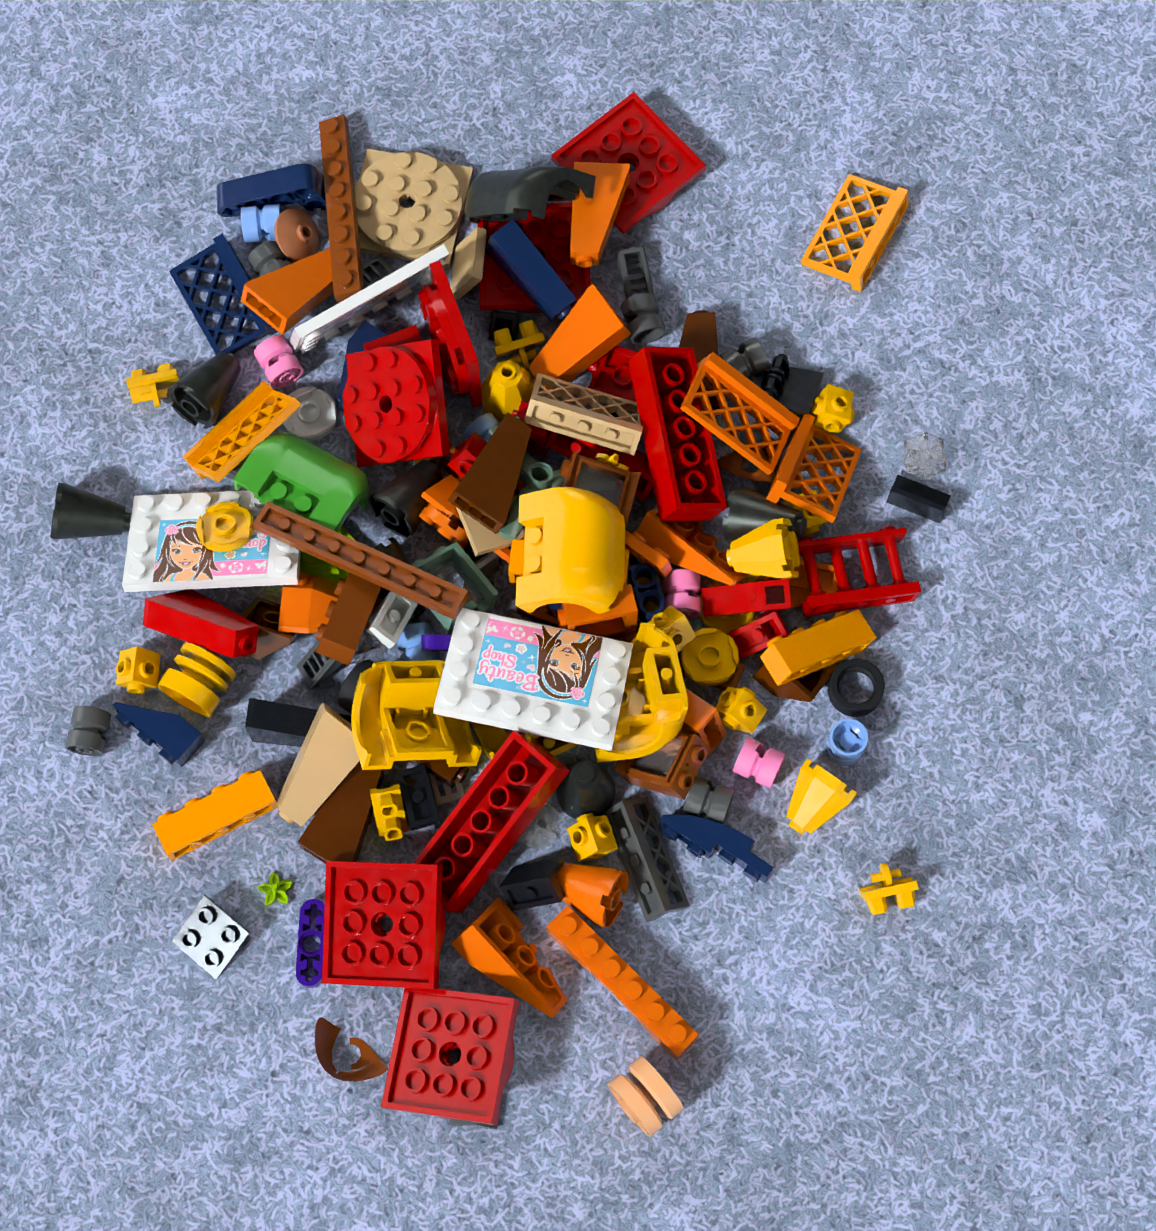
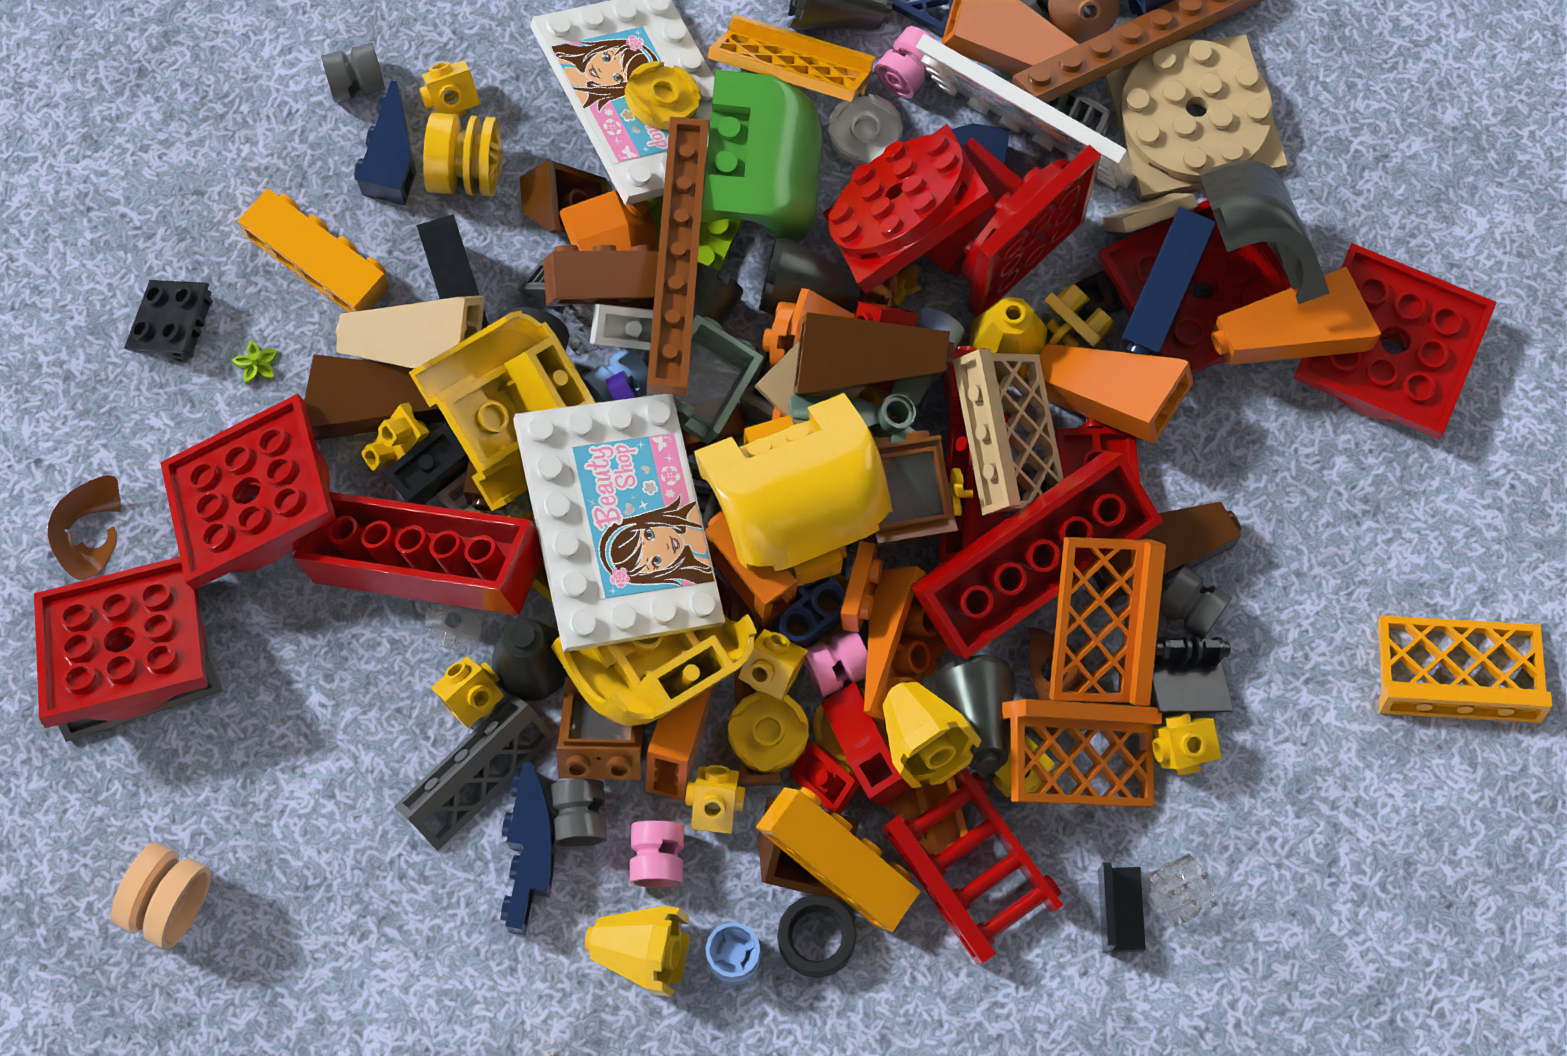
camera: 65 degrees right, 0 degrees up
(201, 622) = (528, 122): red slope -> none
(302, 966) = (193, 423): dark purple beam -> none
(500, 952) = (279, 654): orange wedge -> none
(533, 885) = (374, 643): black panel -> none
(594, 891) = (398, 717): orange cone -> none
(623, 982) = (277, 852): orange arch -> none
(633, 253) = (1273, 401): dark grey slope -> none
(643, 318) = (1184, 456): dark grey wheel -> none

